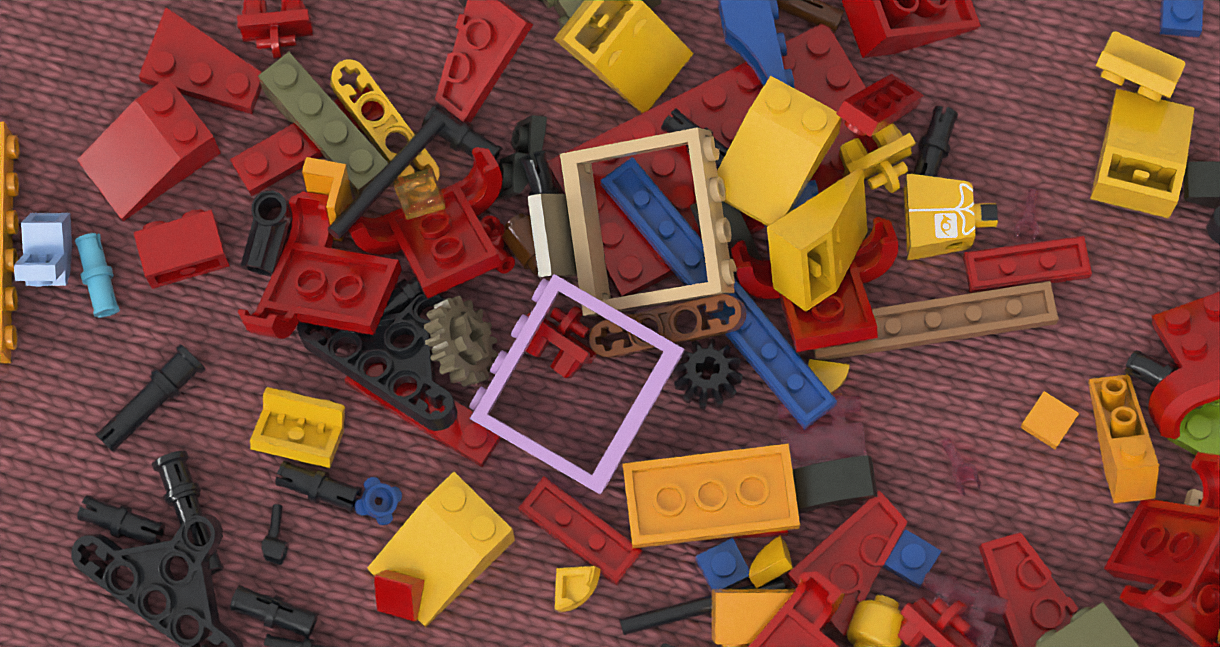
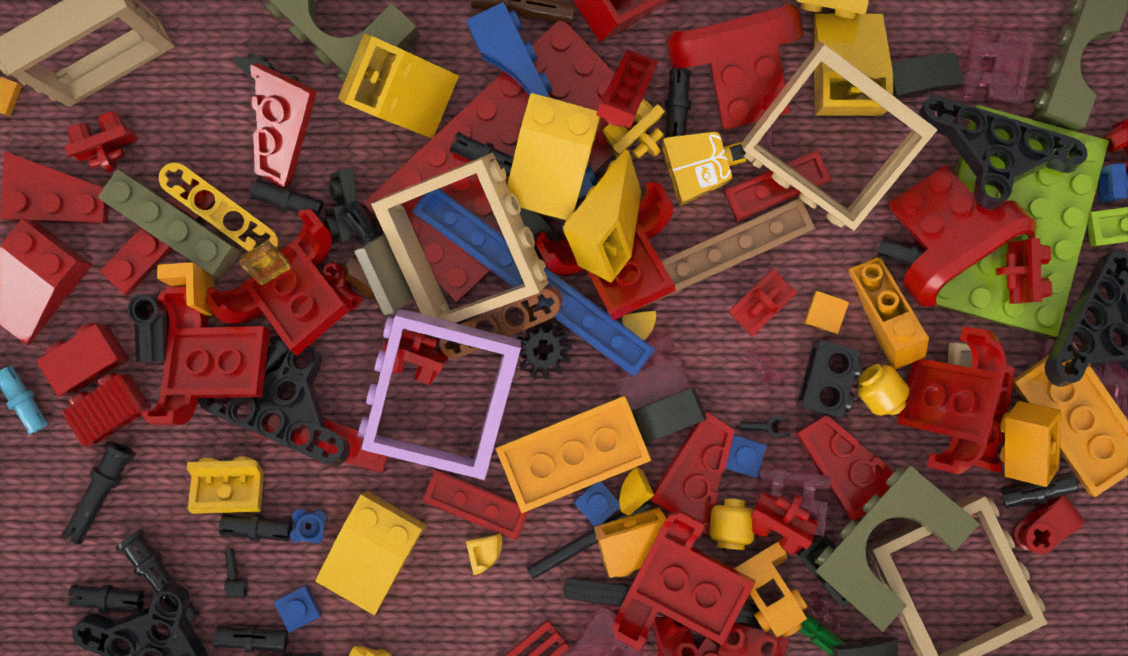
camera: 20 degrees left, 15 degrees up
(189, 308) = (105, 409): none -> red brick
(338, 593) = (298, 608): none -> blue plate
(386, 177) = (232, 258): black bar -> none
(398, 594) = (345, 598): red slope -> none
(461, 341) = (335, 381): dark tan gear -> none
(953, 531) = (770, 426): none -> black hand
(976, 384) = (762, 302): none -> red hips
(1019, 117) = (741, 60): none -> red piece
(1027, 489) = (819, 376): none -> black brick
(1061, 276) = (884, 178): none -> tan window
(1095, 522) = (882, 390): none -> yellow head

